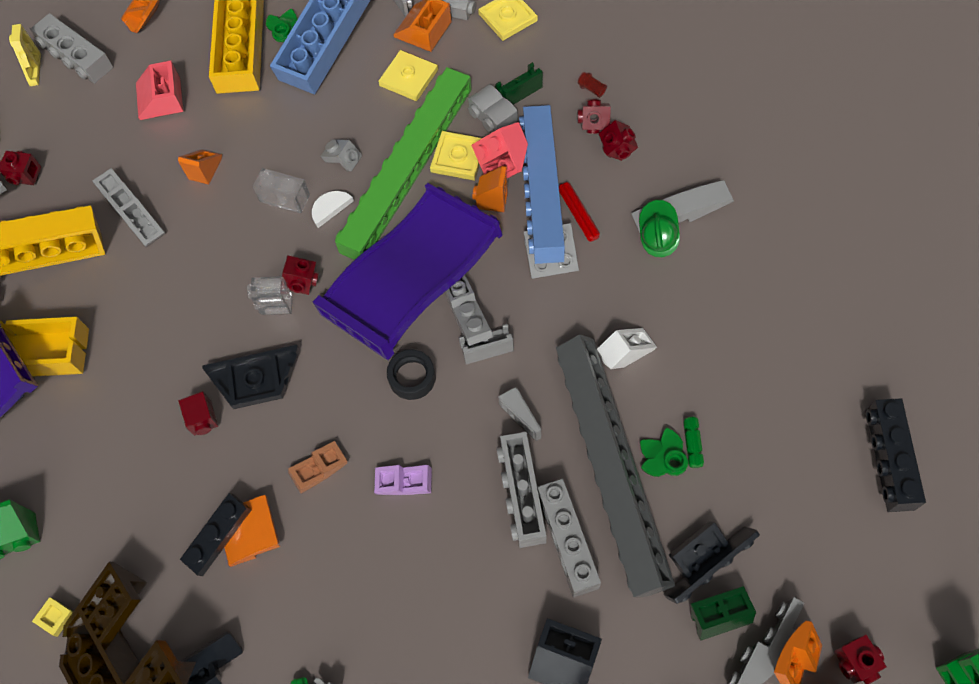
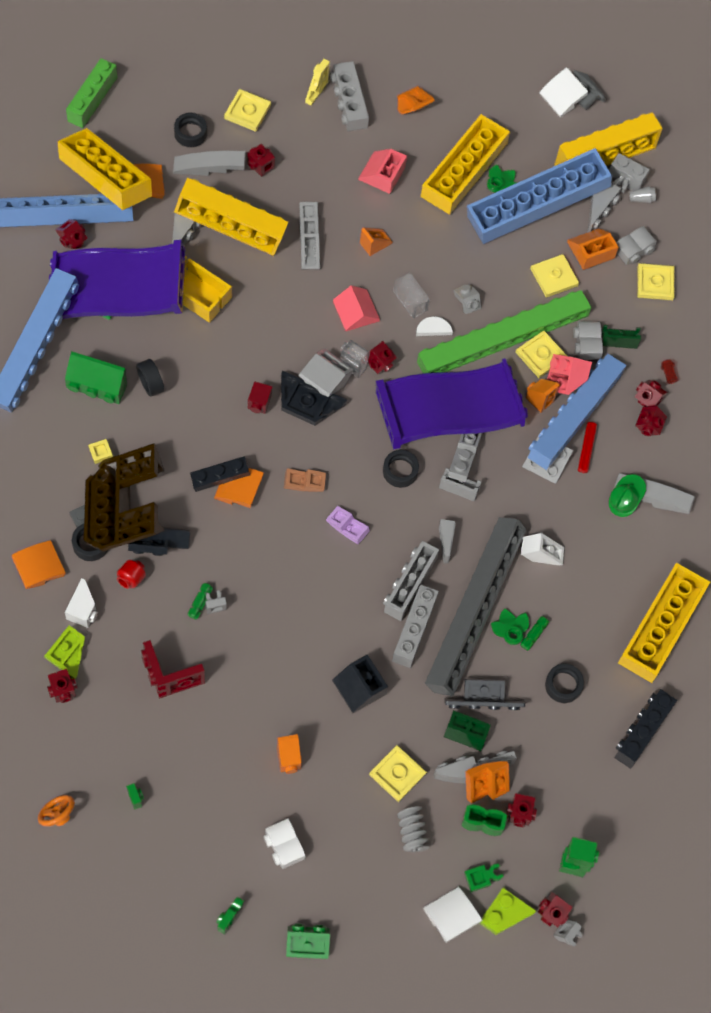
camera: 25 degrees right, 0 degrees up
(53, 485) = (150, 377): none -> black tyre
(233, 245) = (355, 308): none -> coral slope
(252, 333) = (326, 373): none -> light grey slope
(784, 458) = (568, 669): none -> black tyre
(811, 329) = (664, 622): none -> yellow brick

